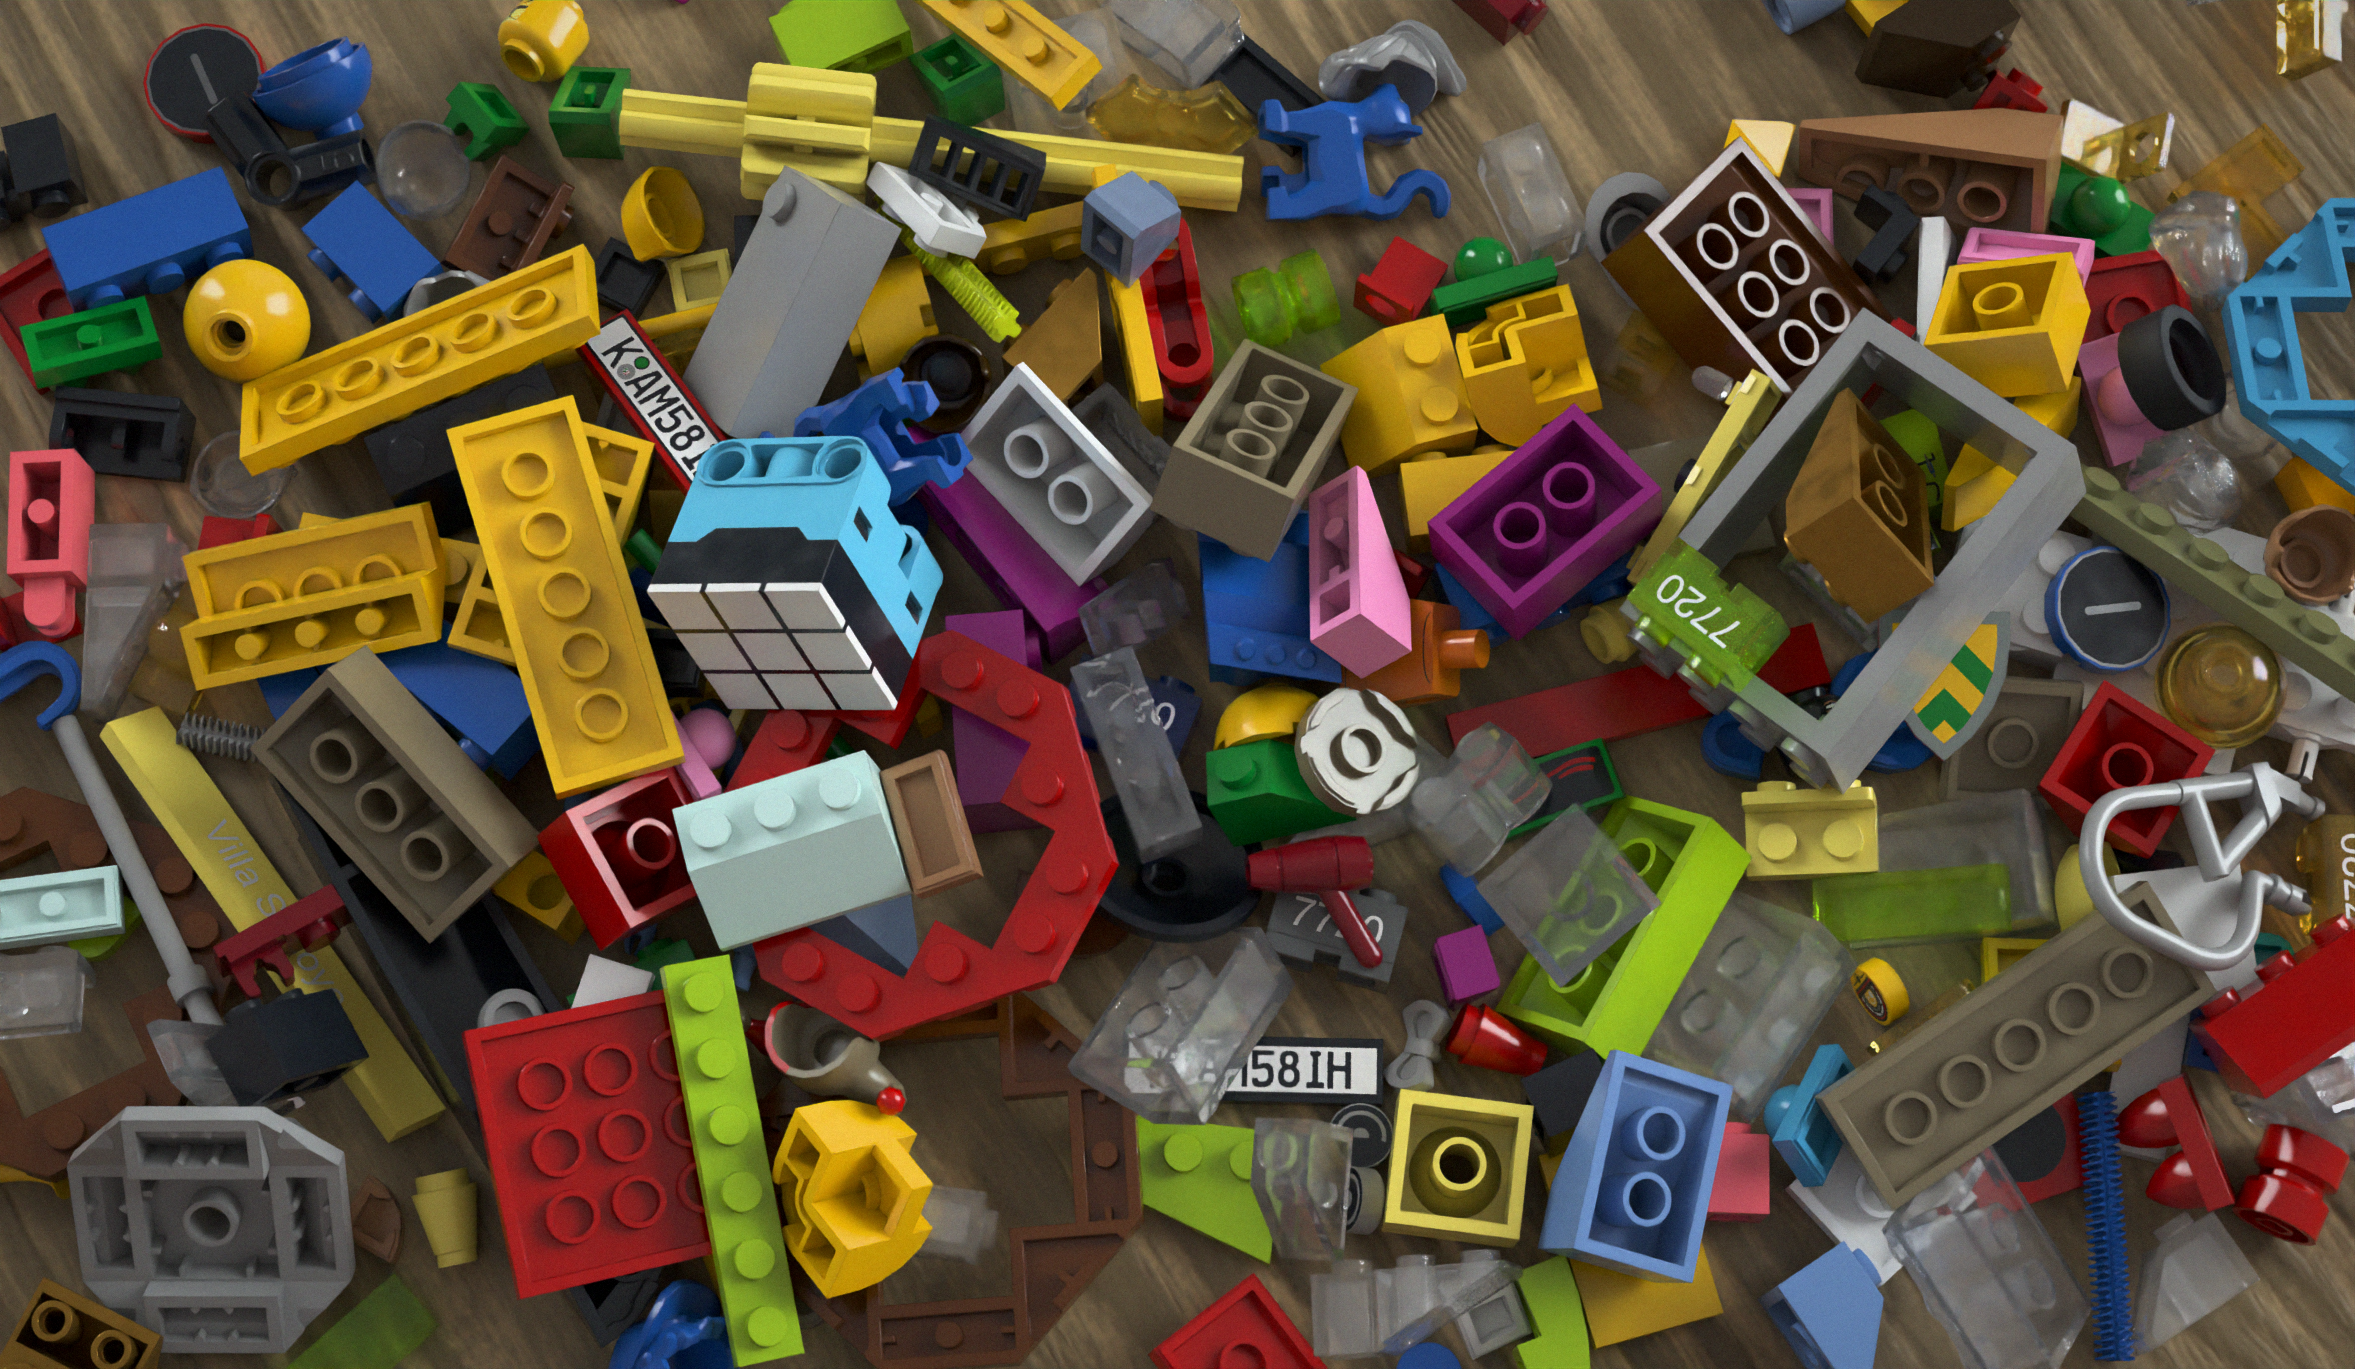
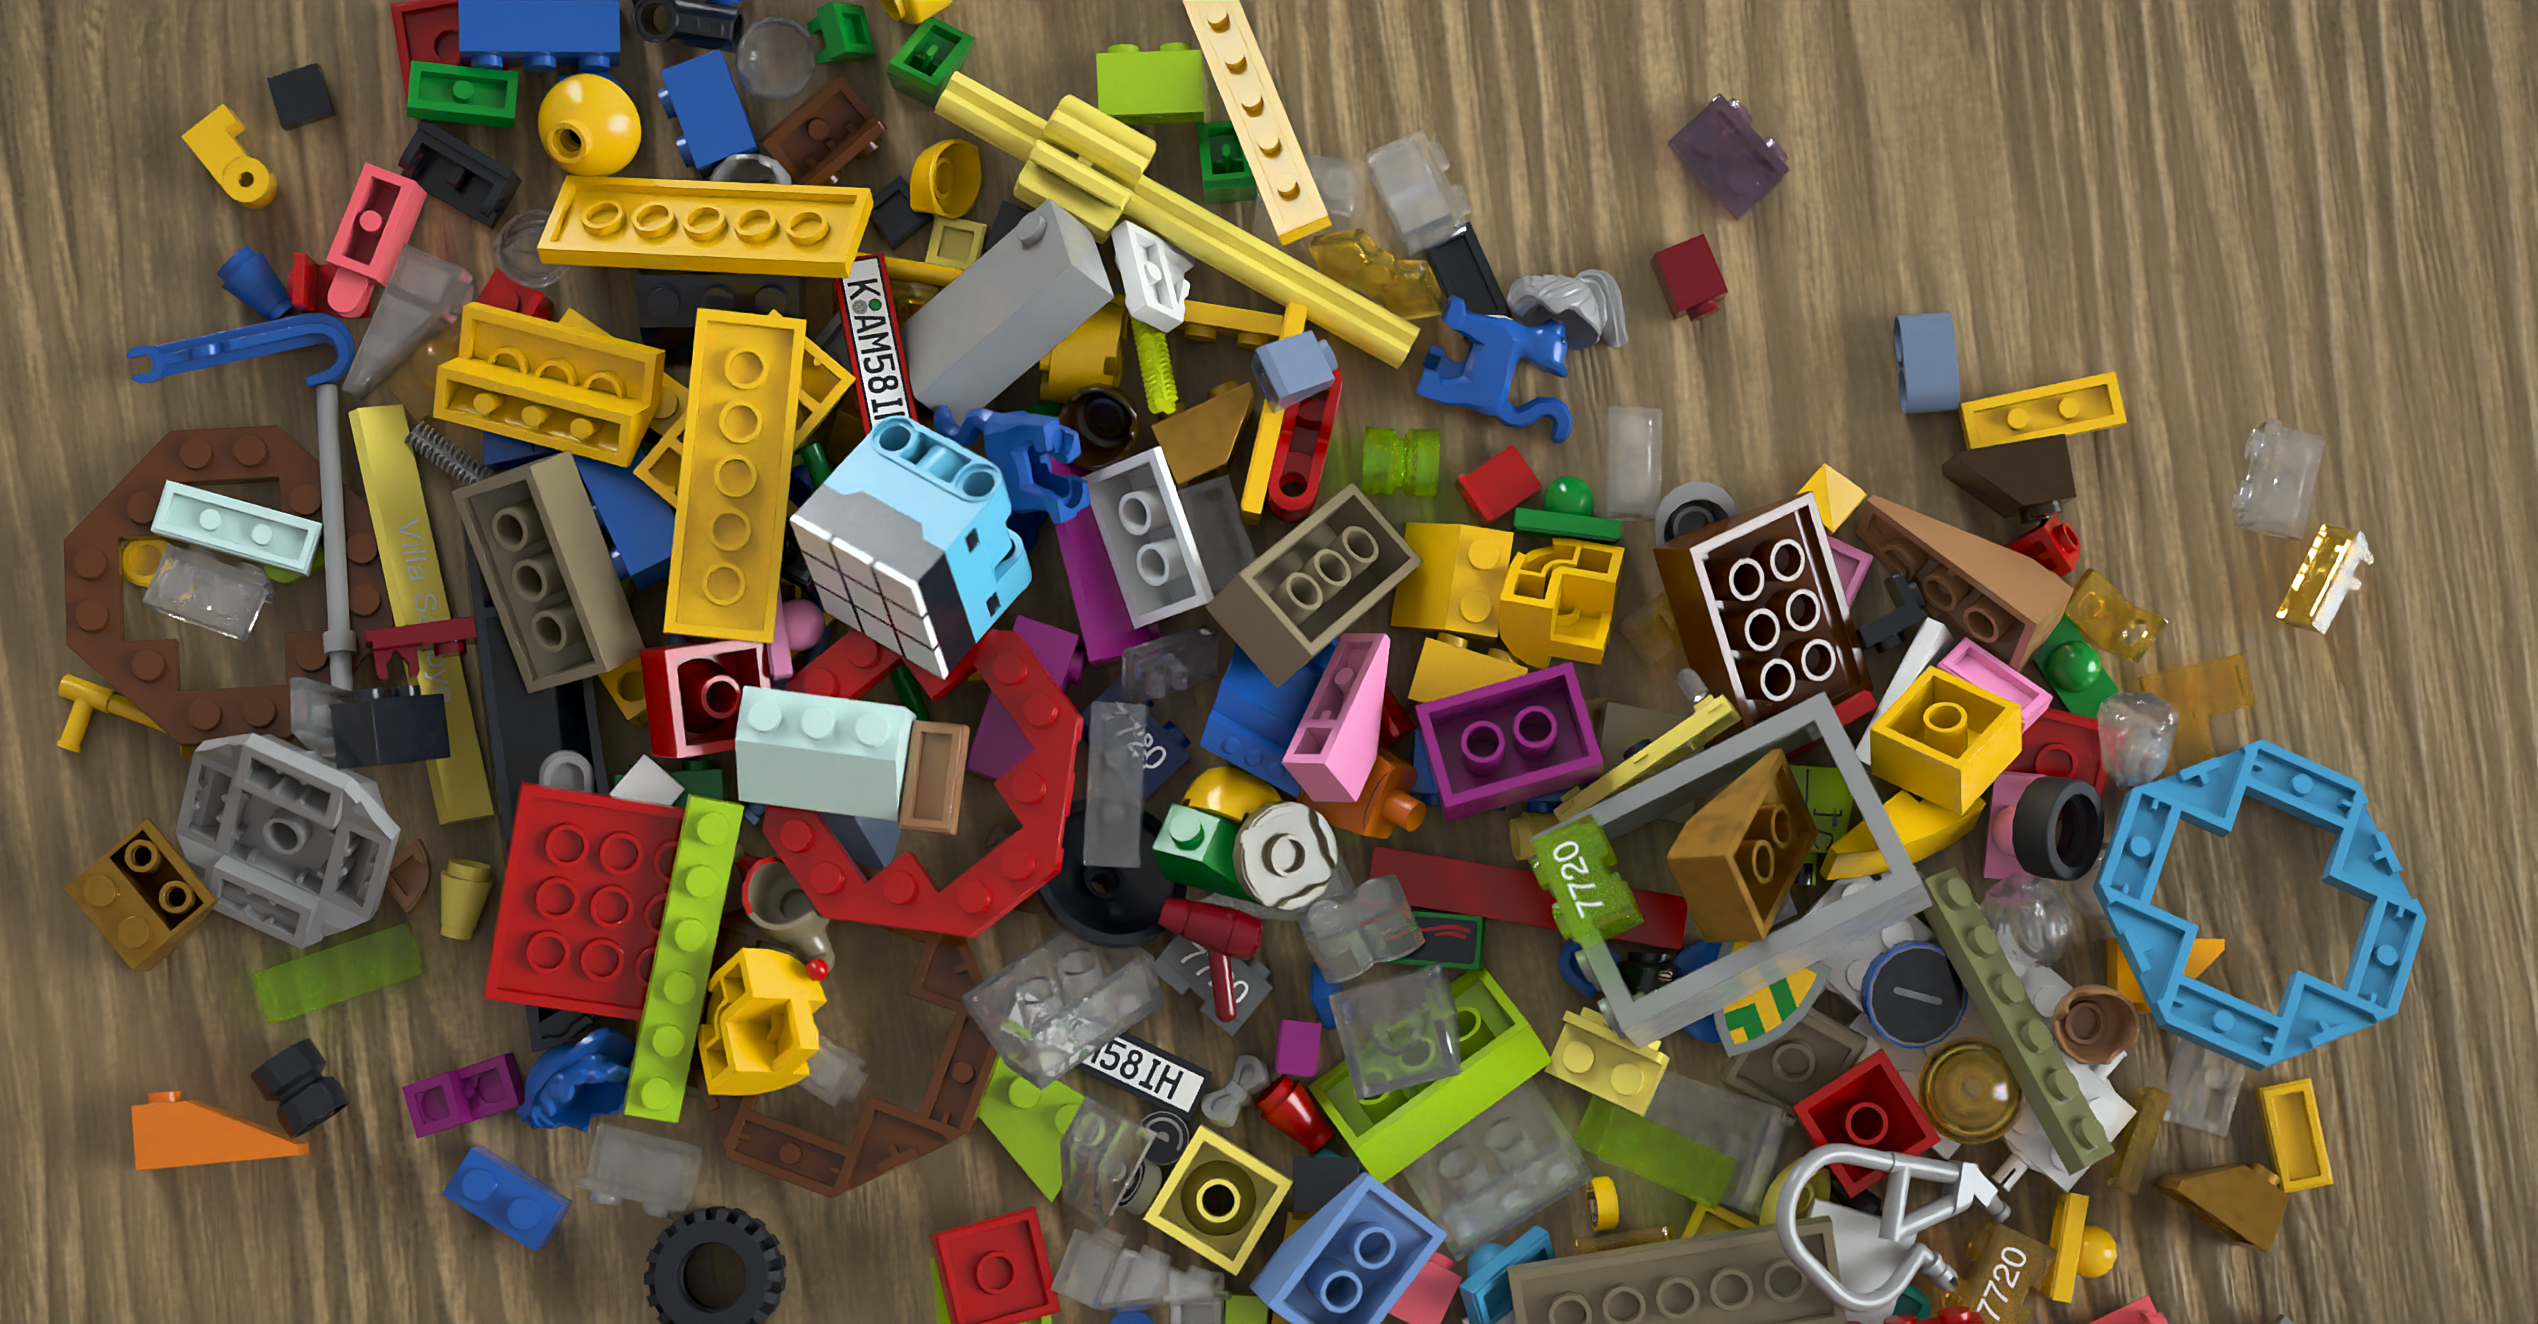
camera: 20 degrees right, 10 degrees up
(991, 195) = (1203, 279): black slope -> none

